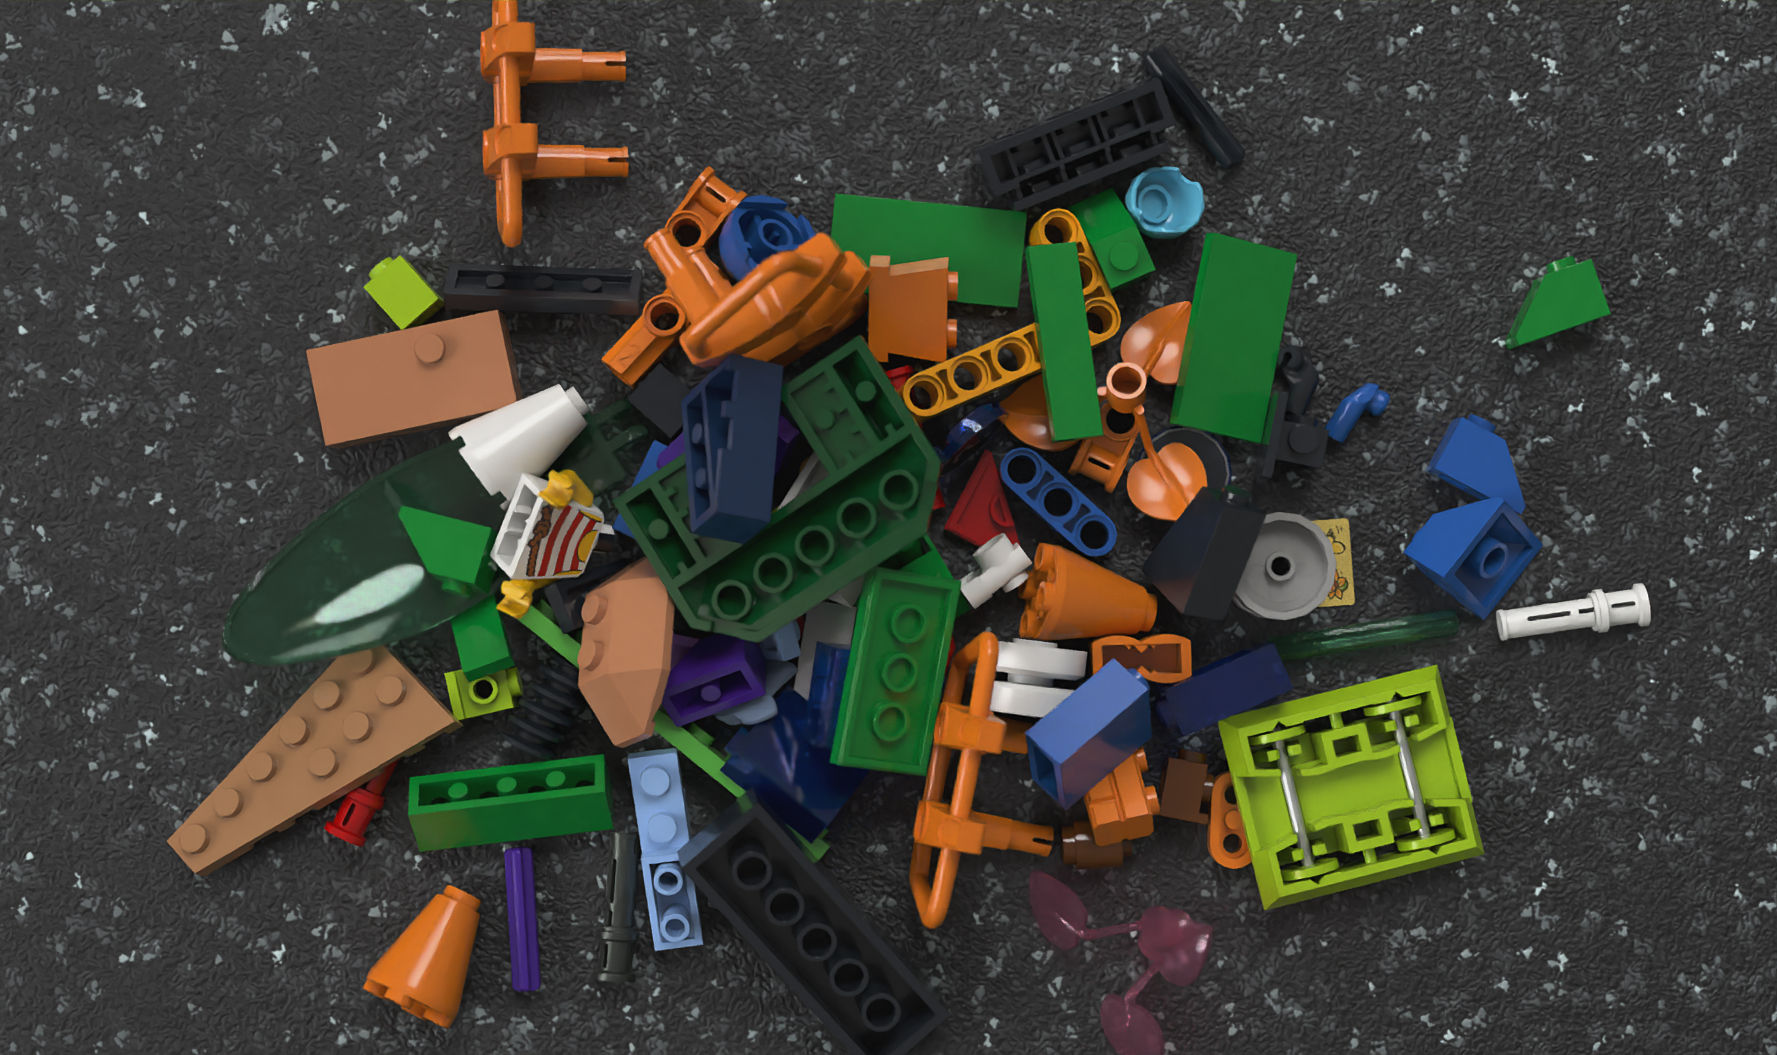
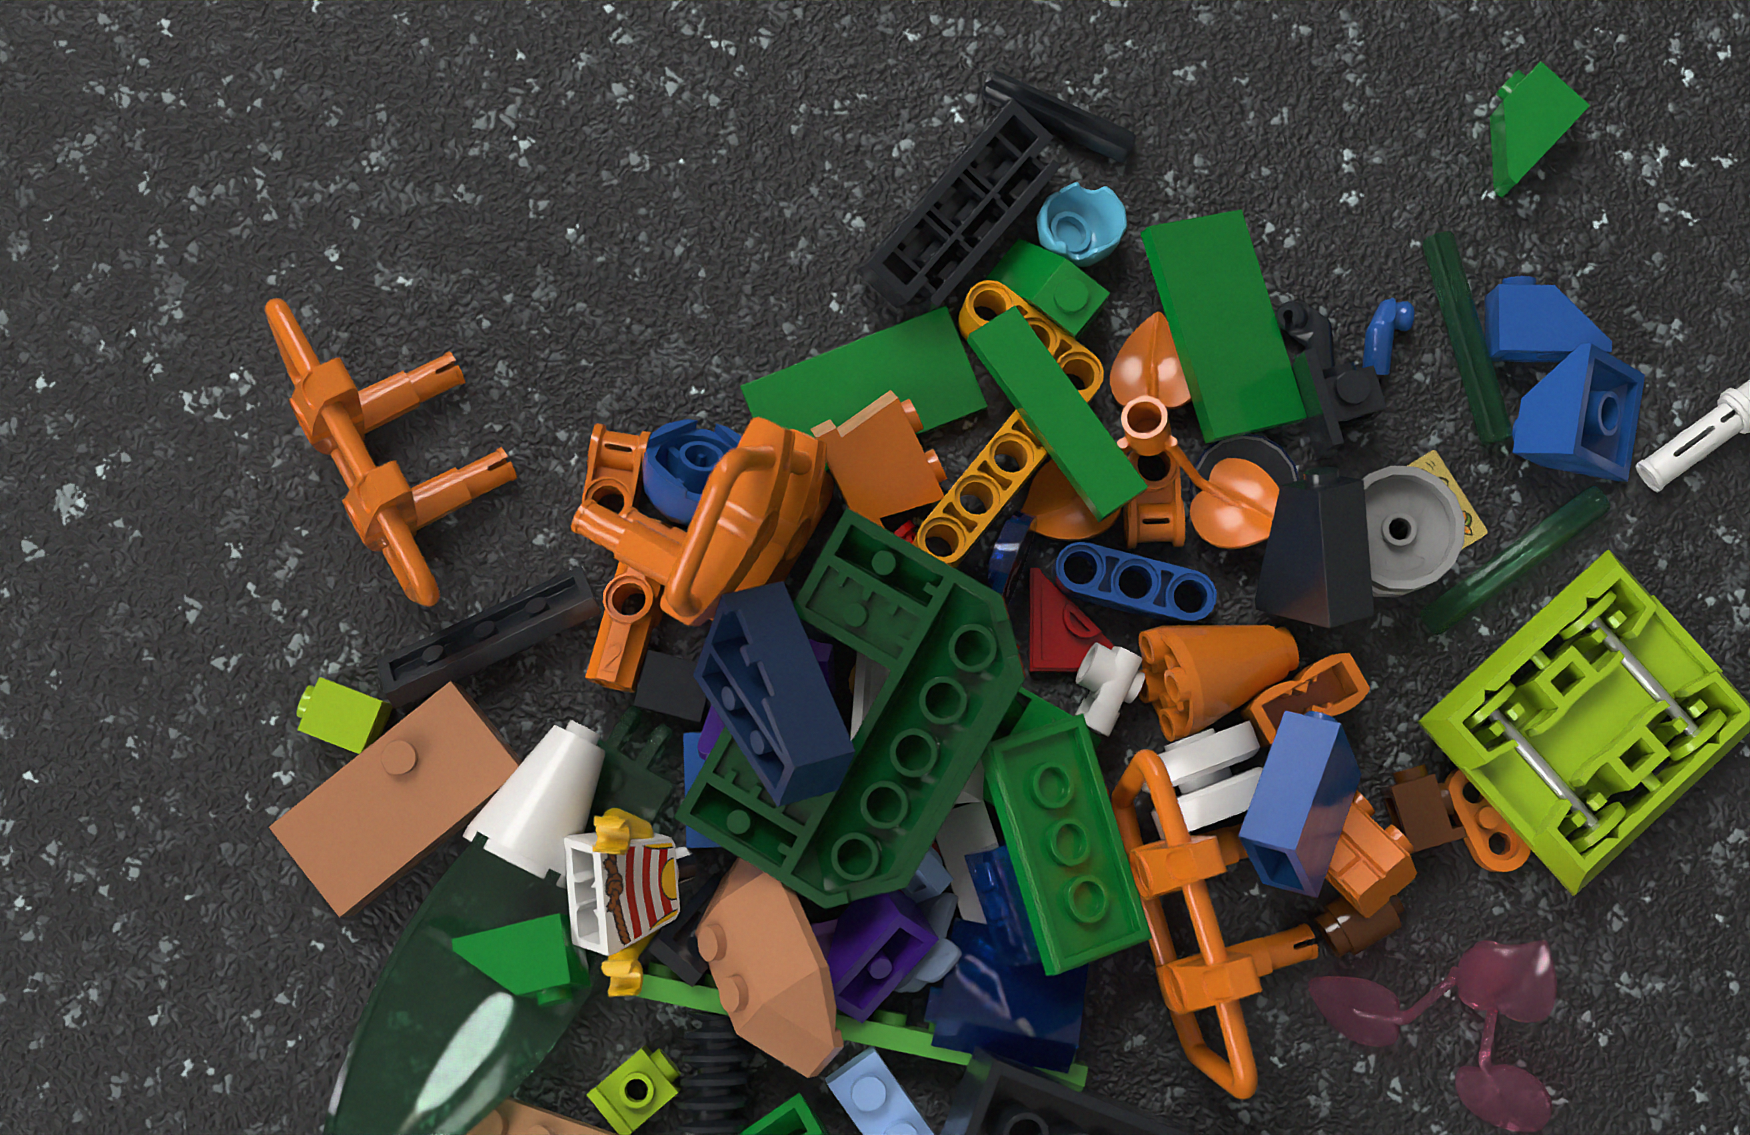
camera: 30 degrees left, 5 degrees down
(482, 640) = (609, 1038): green tile -> none
(1222, 689) = (1409, 686): clear blue window -> none
(1419, 445) = (1467, 338): none -> clear green axle

